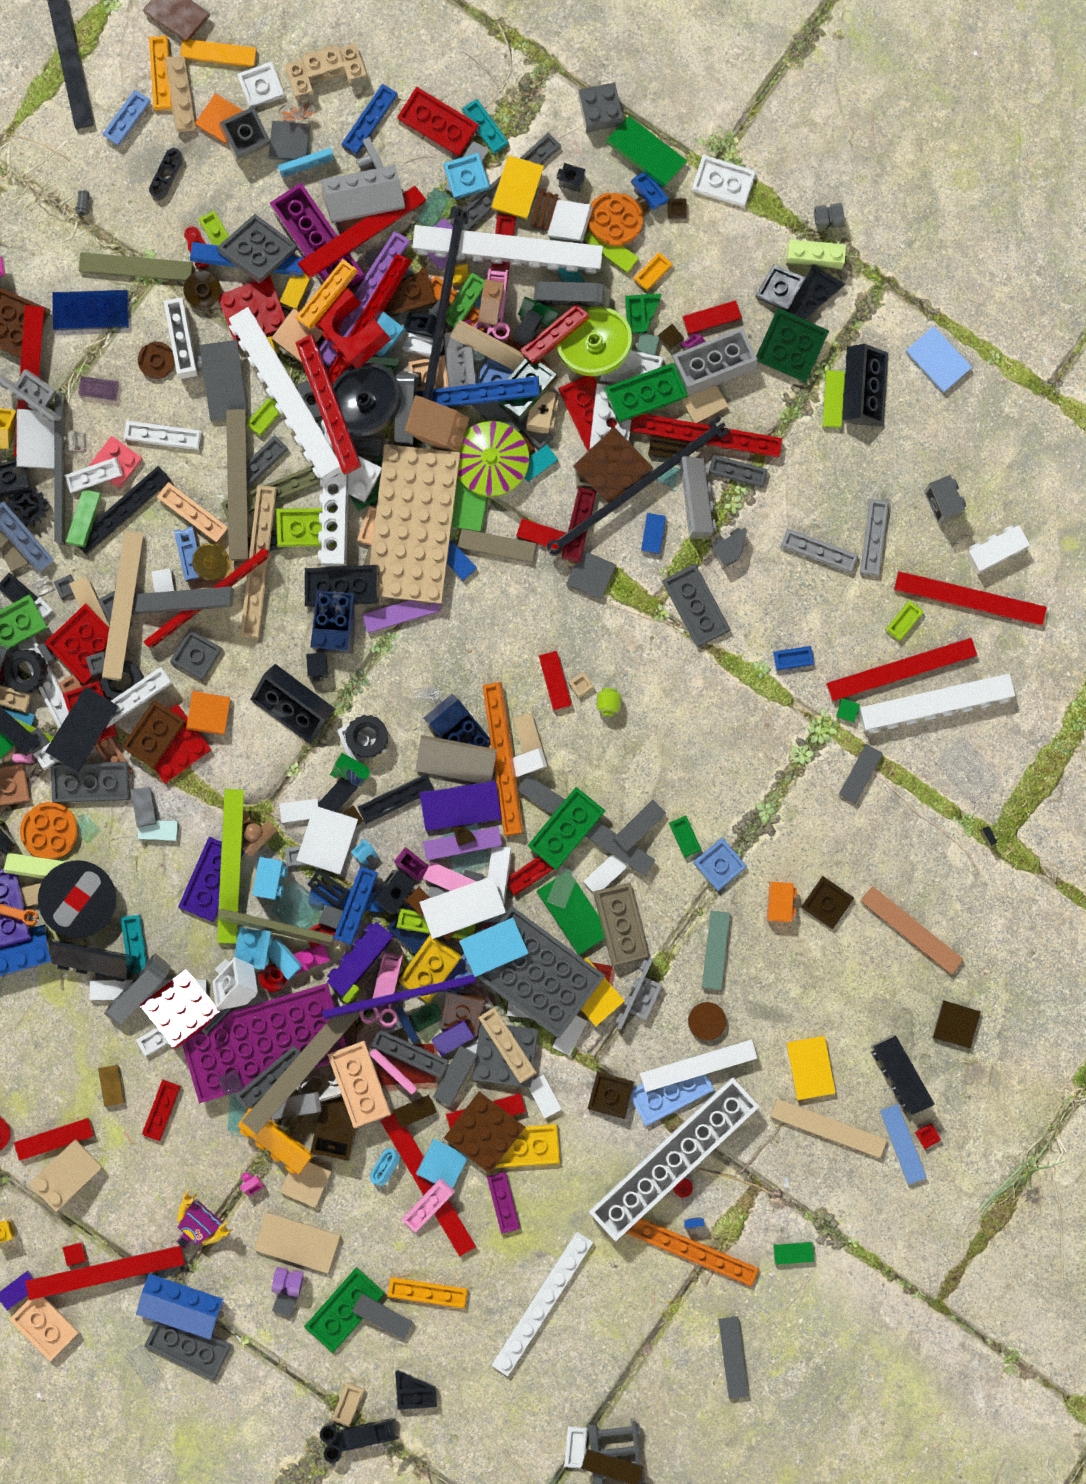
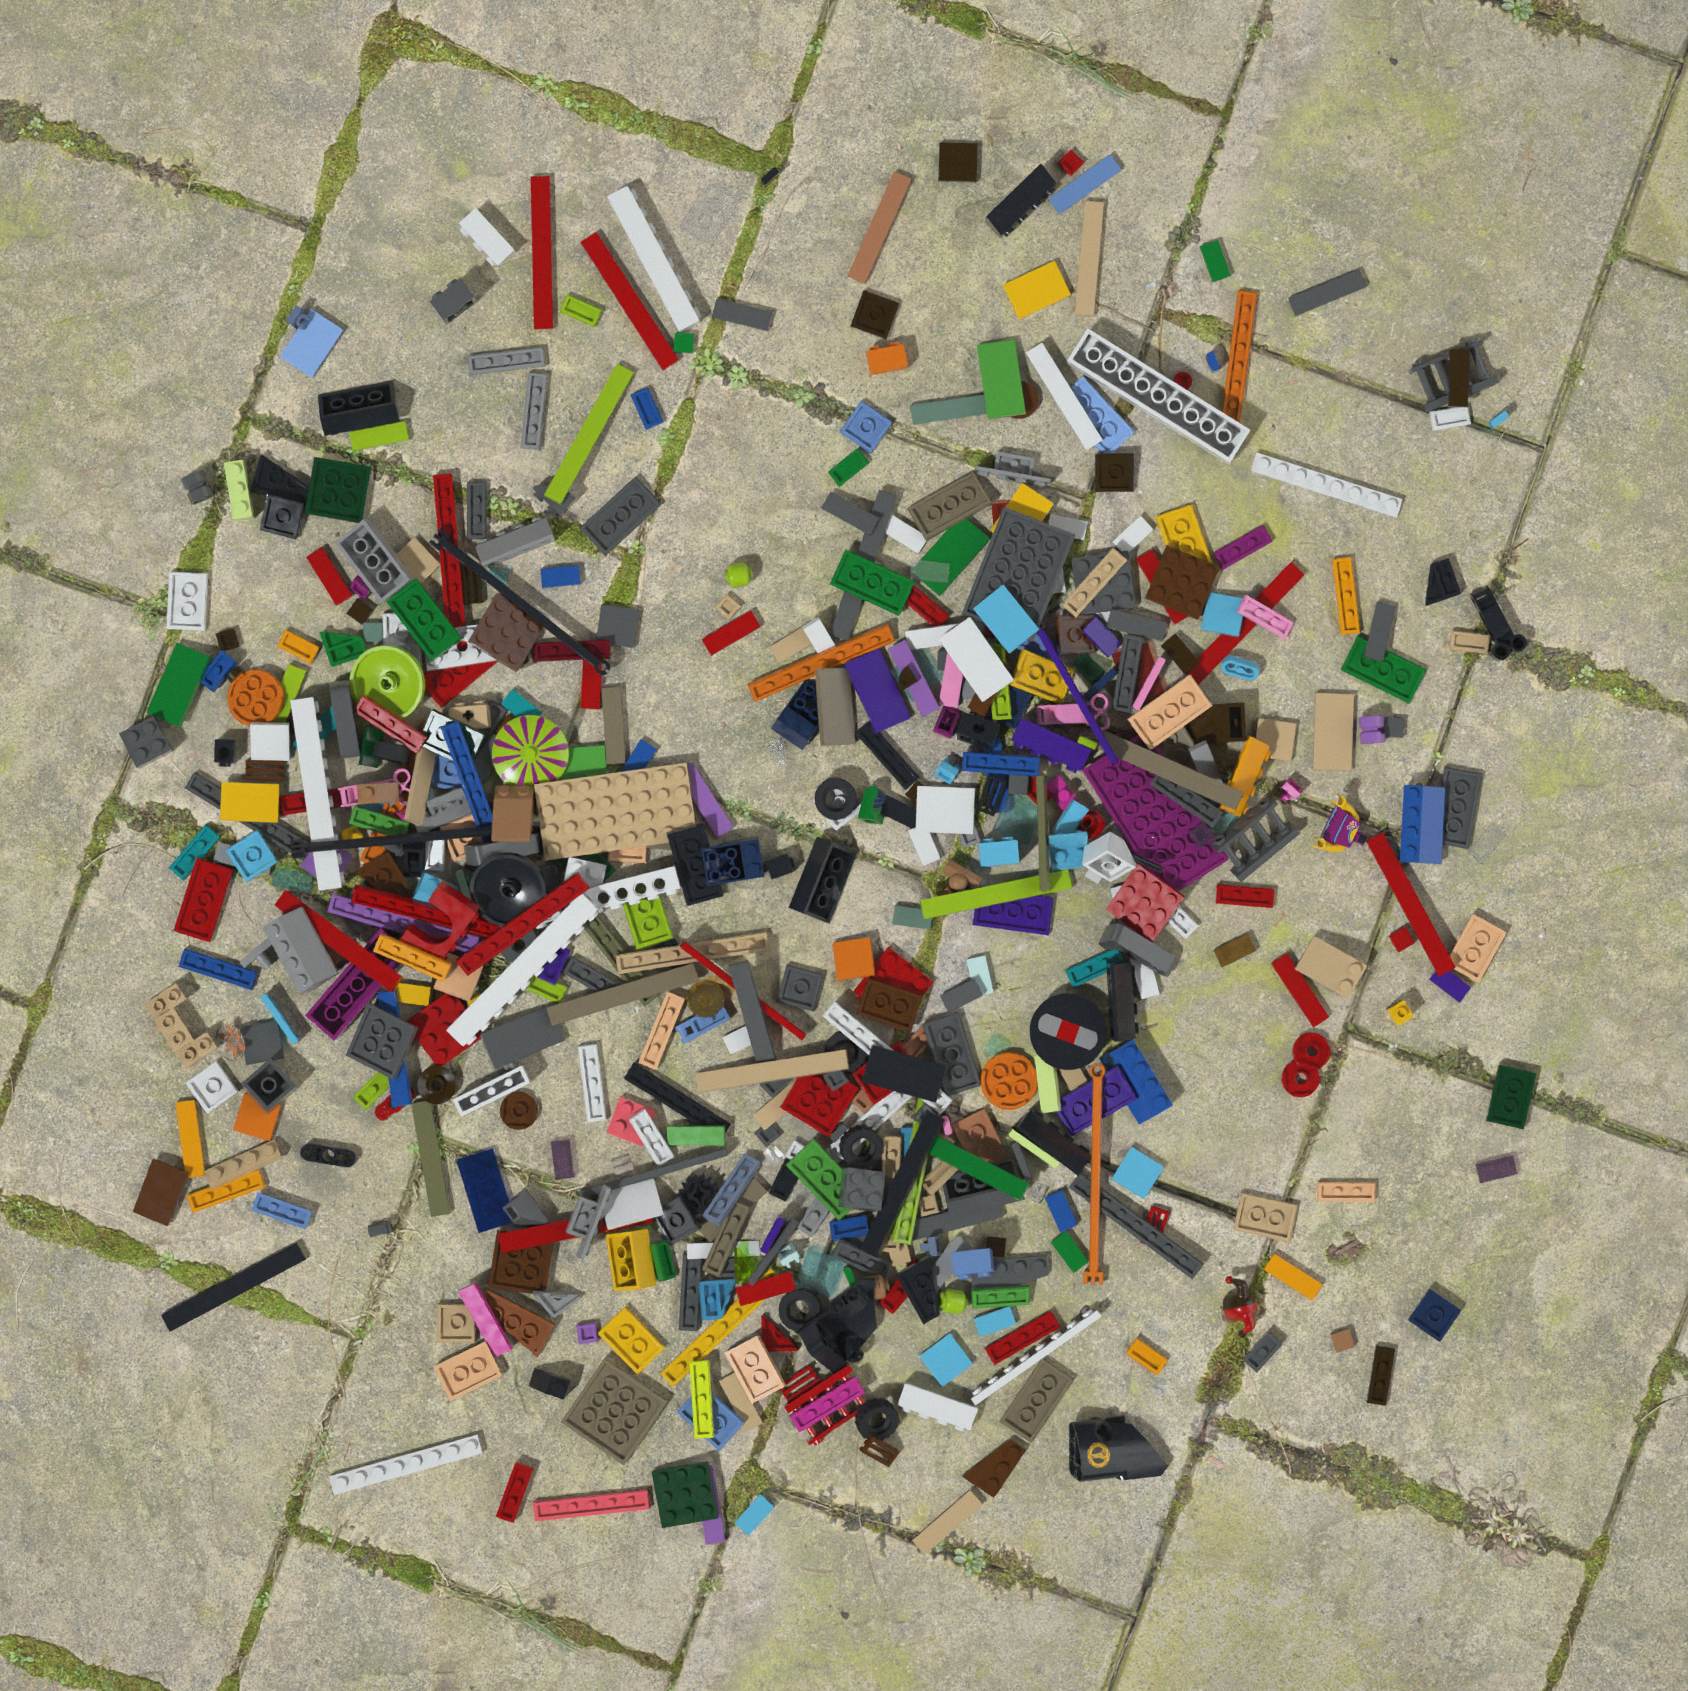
camera: 105 degrees left, 5 degrees up
(59, 338) = (525, 1211): none -> dark grey slope
(197, 1139) = (1266, 850): none -> dark grey fence
(233, 777) = (910, 917): none -> sand green tile
(278, 426) = (553, 970): none -> dark purple tile
(731, 1008) = (1001, 379): none -> bright green tile
(783, 595) = (588, 434): none -> lime tile
(967, 350) = (296, 317): none -> sand blue tile

